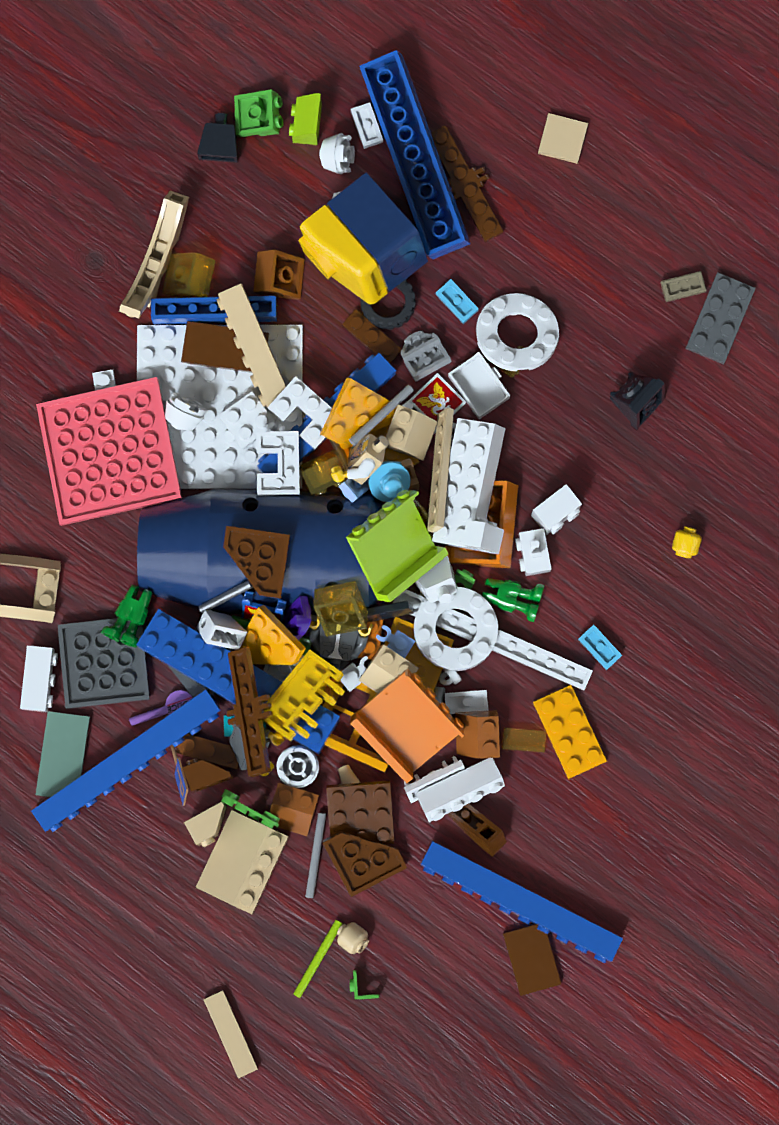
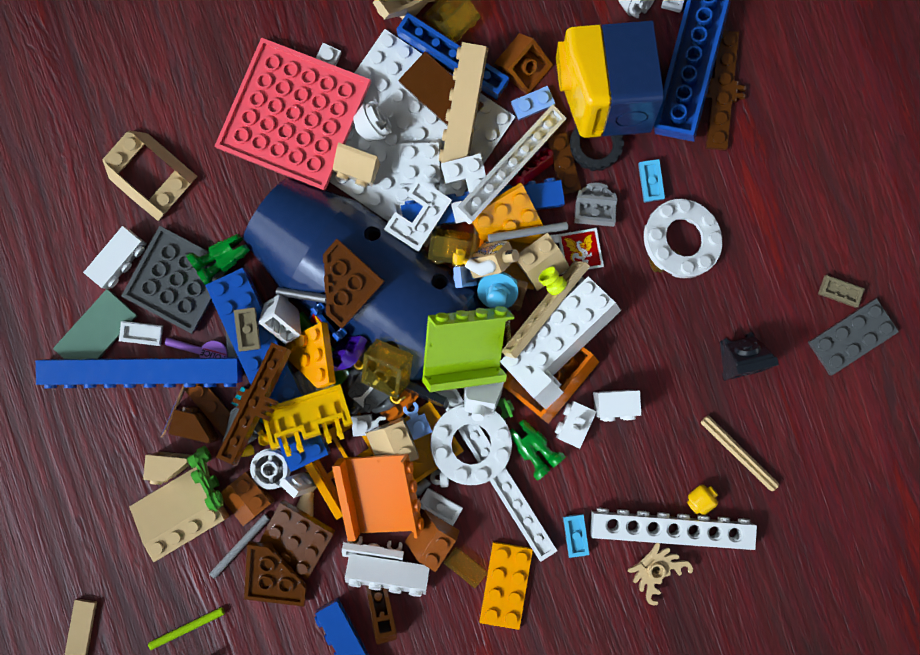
camera: 30 degrees right, 5 degrees up
(104, 729) = (141, 333): none -> white tile
(195, 458) = (355, 165): none -> tan slope
(199, 655) = (247, 329): none -> dark tan plate
(309, 303) = (532, 103): none -> light blue plate
(327, 367) = (510, 164): none -> white plate
(331, 762) = (298, 484): none -> white plate
(349, 346) = (540, 161): none -> dark red beam
(352, 938) = (223, 632): tan head -> none
(432, 442) = (554, 283): none -> neon yellow wheel
(479, 385) = (623, 260): white container -> none
(562, 138) = (826, 106): tan tile -> none
(685, 629) = (654, 568): none -> tan animal
(692, 482) = (726, 440): none -> tan axle
(745, 552) = (743, 539): none -> white brick

